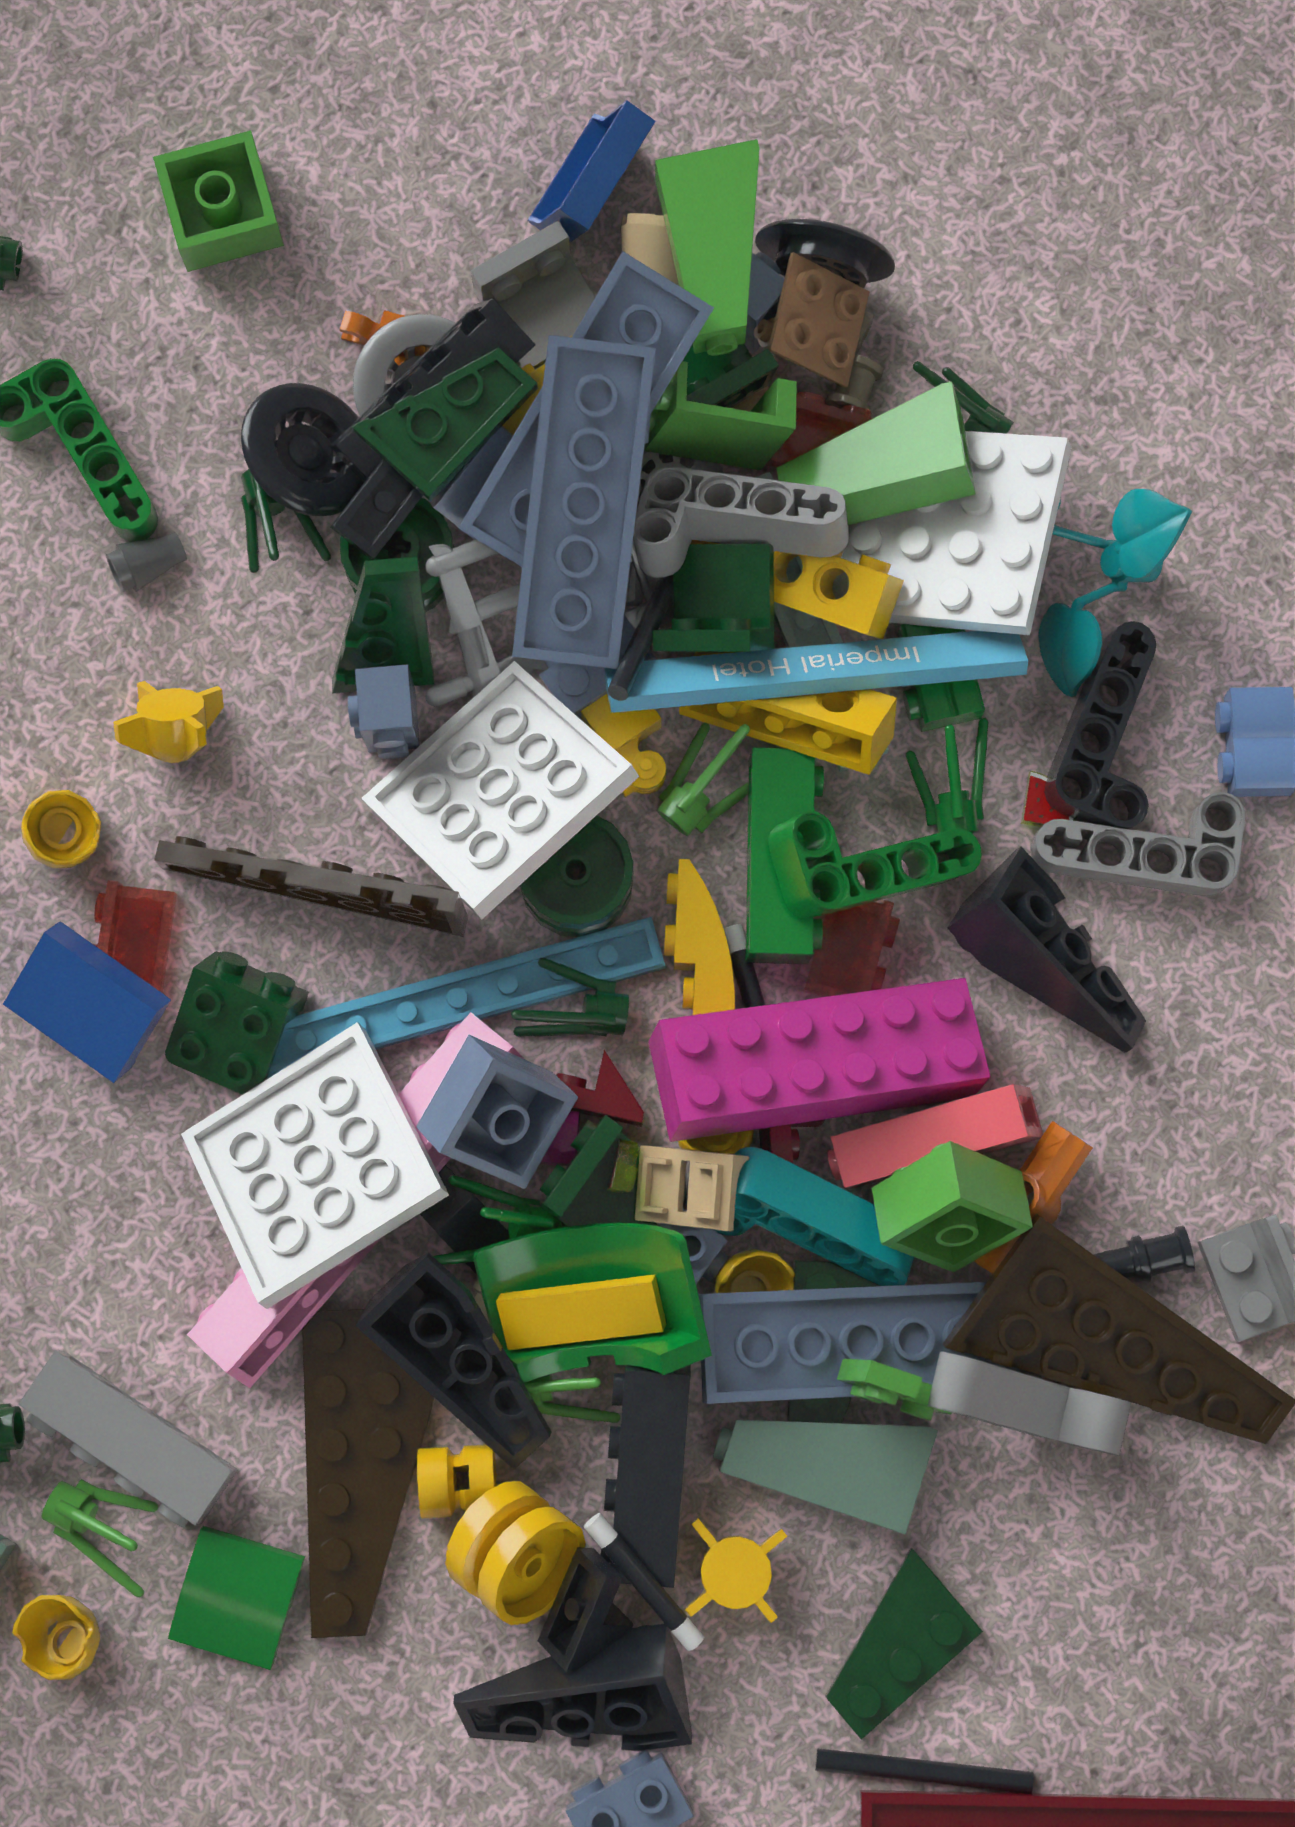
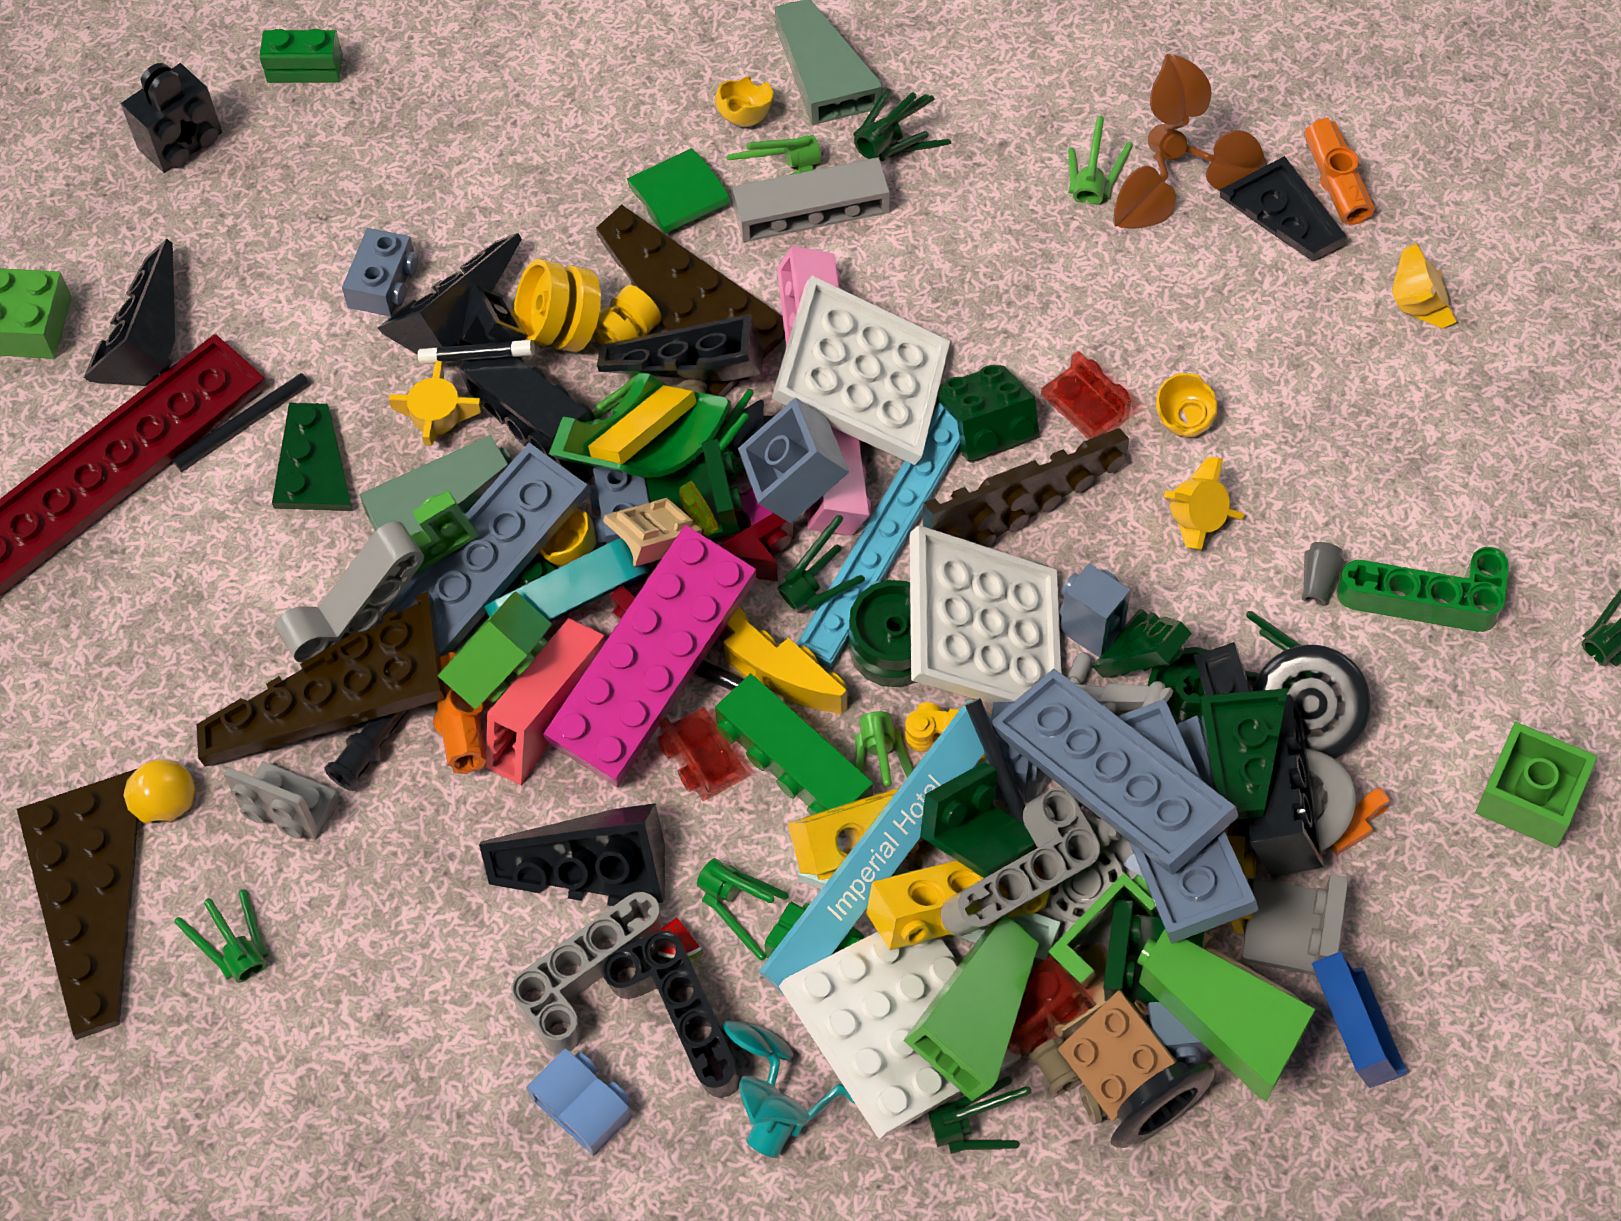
camera: 135 degrees right, 20 degrees down
(86, 1001) = (1068, 339): blue container -> none
(880, 867) = (731, 791): green beam -> none

